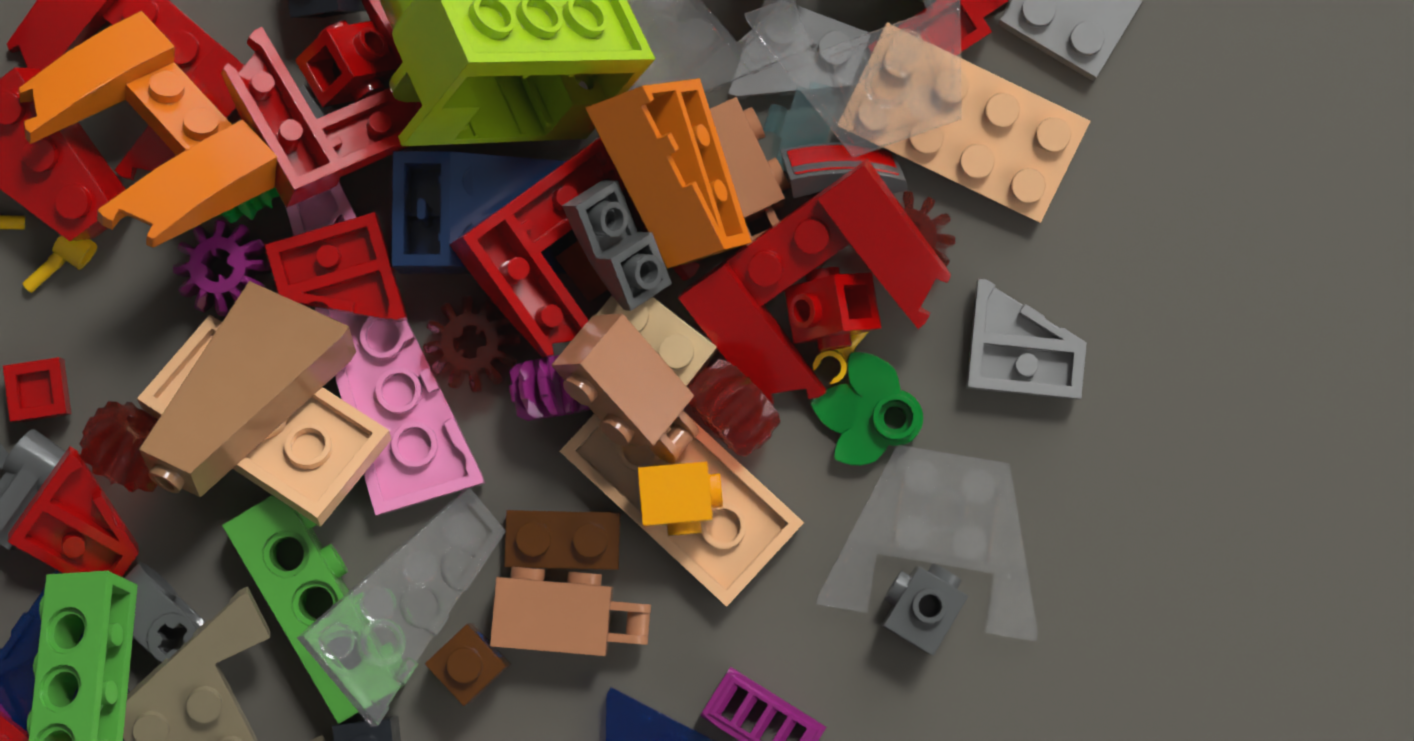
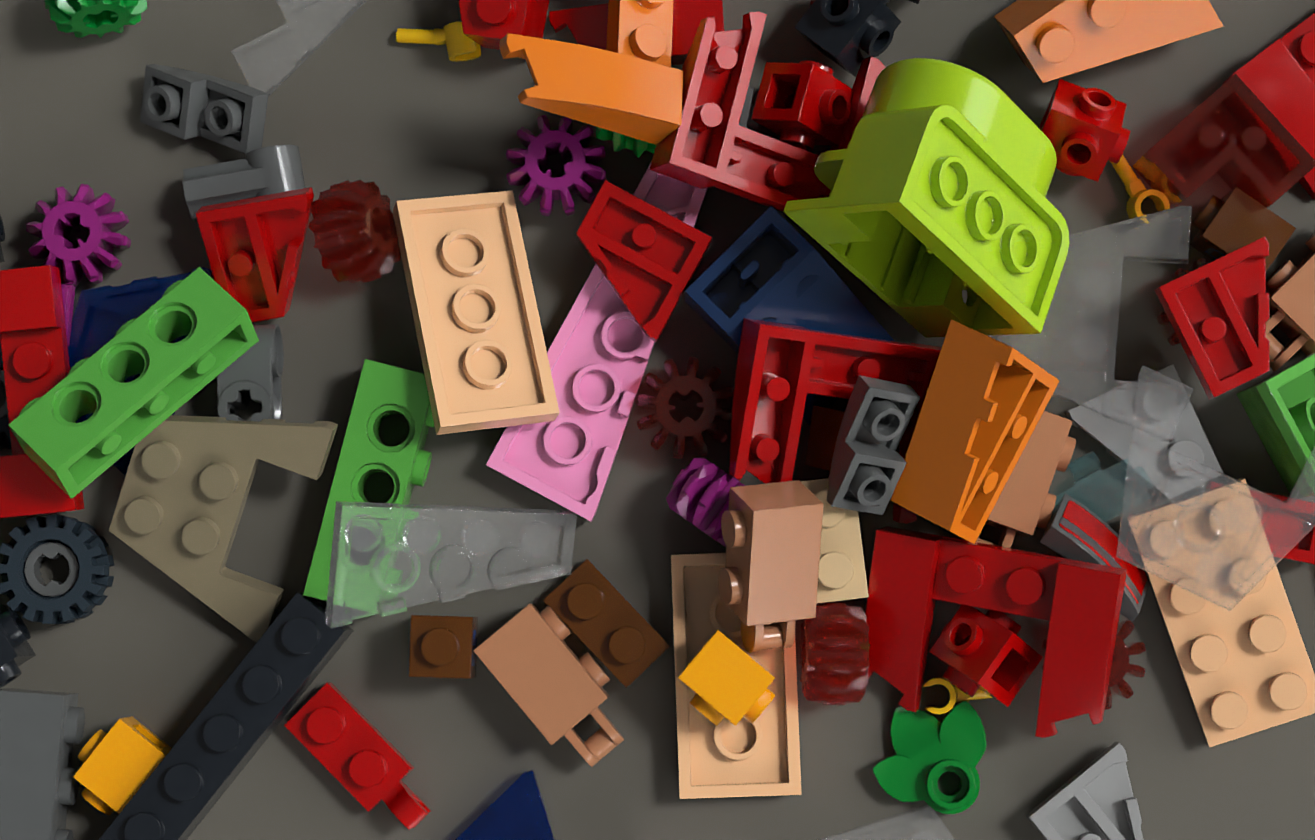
camera: 45 degrees right, 0 degrees up
(37, 390) = (329, 119): red plate -> none
(243, 387) = (483, 272): medium nougat slope -> none

